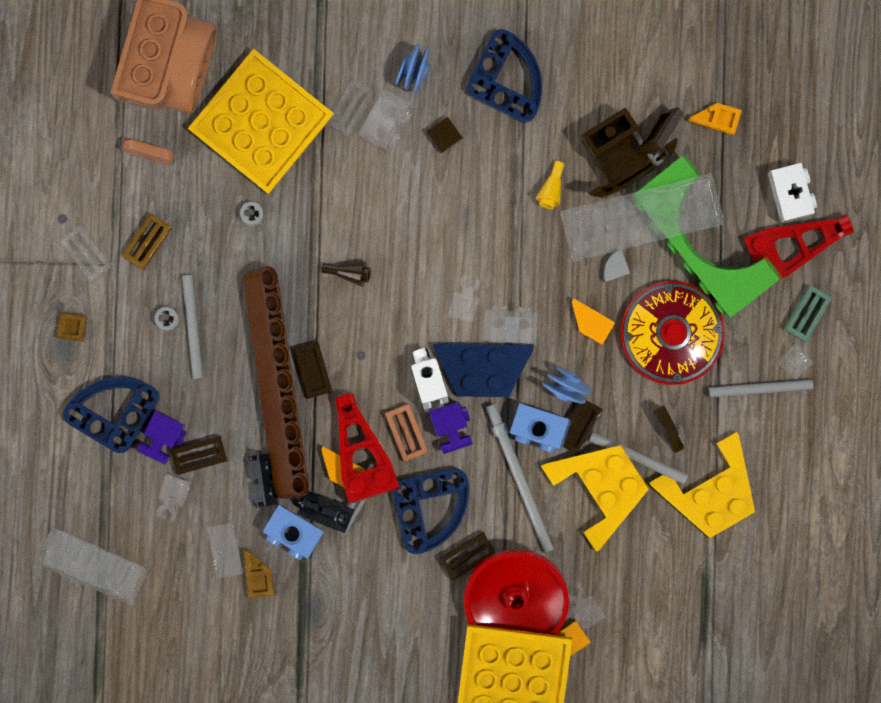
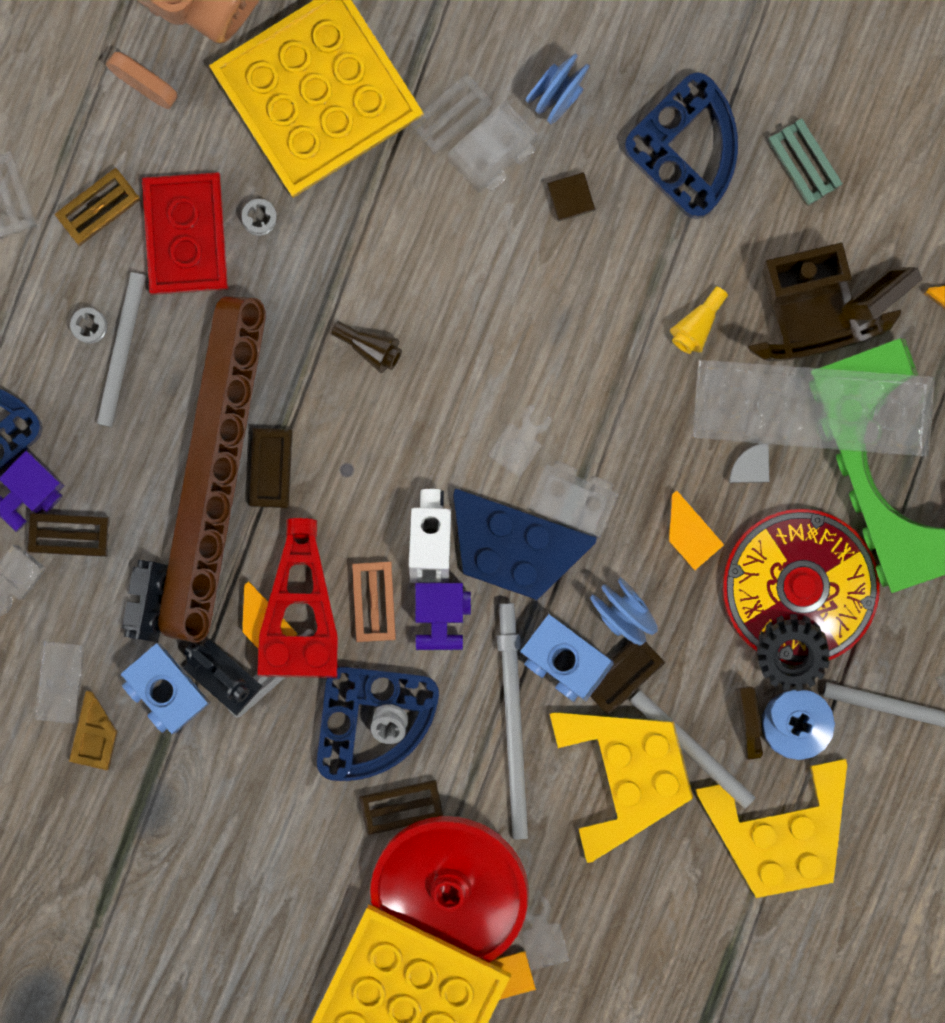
camera: 20 degrees right, 0 degrees up
(208, 240) = (185, 233): none -> red tile
(436, 504) = (384, 715): none -> light grey bush
(568, 49) = (788, 134): none -> sand green tile
(670, 365) = (798, 674): none -> black tyre
(691, 409) = (793, 704): none -> medium blue piece

